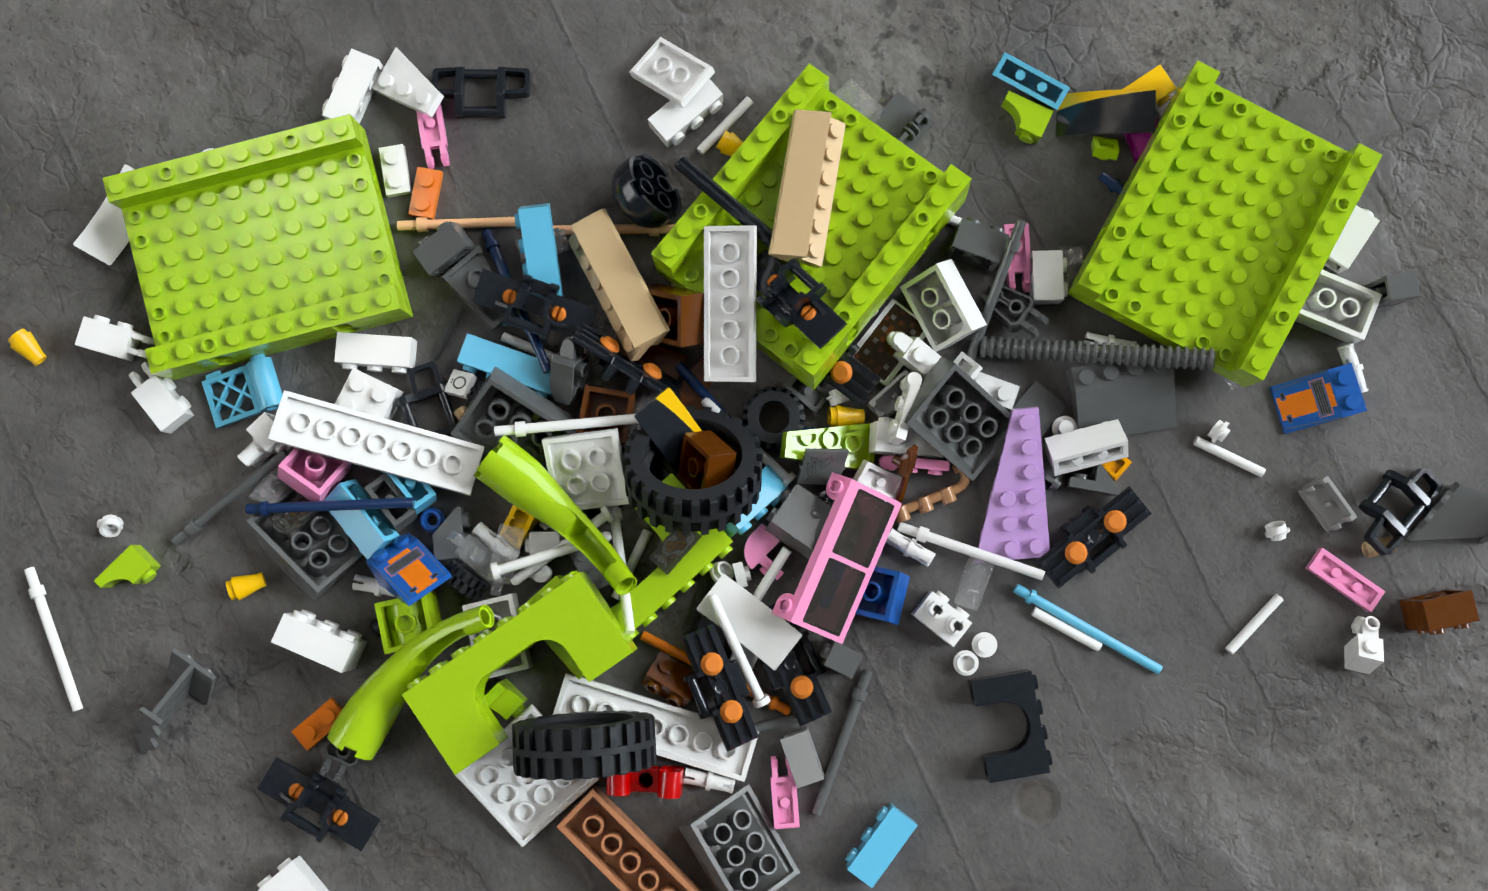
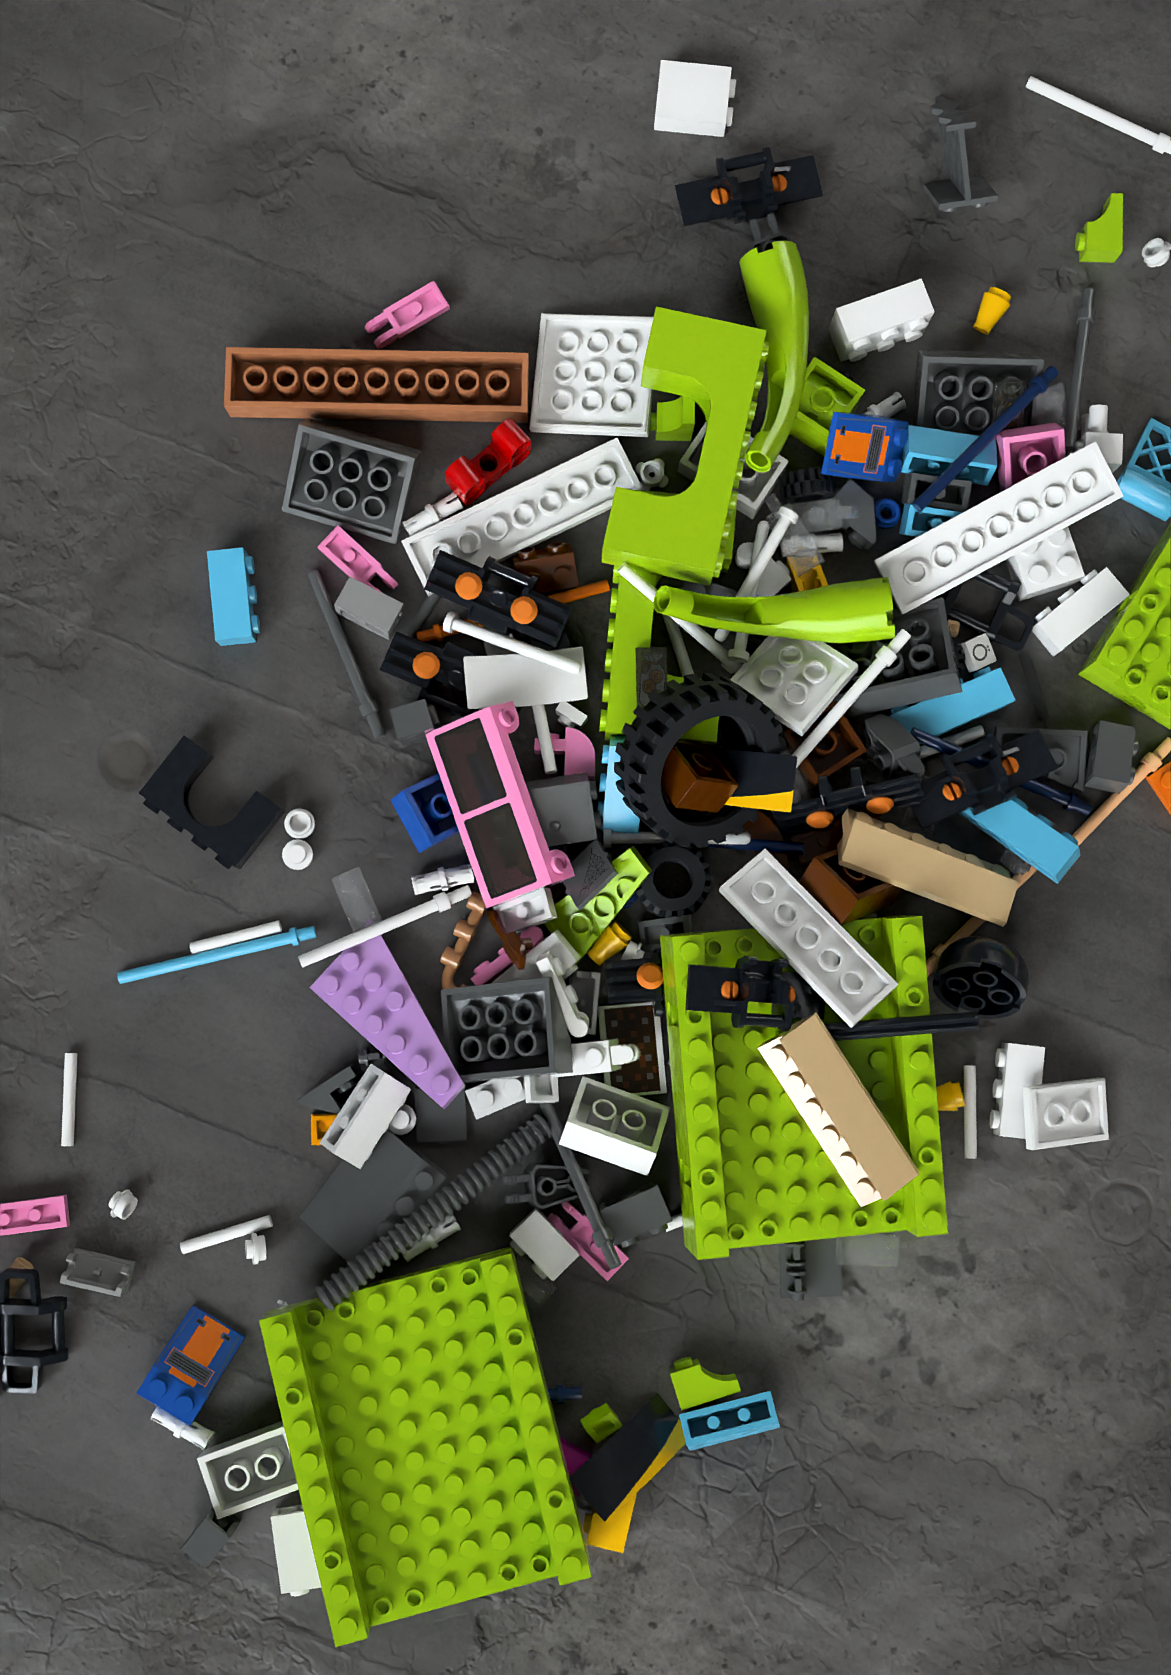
camera: 135 degrees right, 0 degrees up
(317, 725) = (814, 253): orange plate -> none
(543, 680) = (655, 466): none -> white plate
(584, 745) = (570, 434): black tyre -> none
(721, 568) = (592, 704): white plate -> none
(942, 618) = (357, 842): white brick -> none
(1087, 531) = (295, 1043): black piece -> none

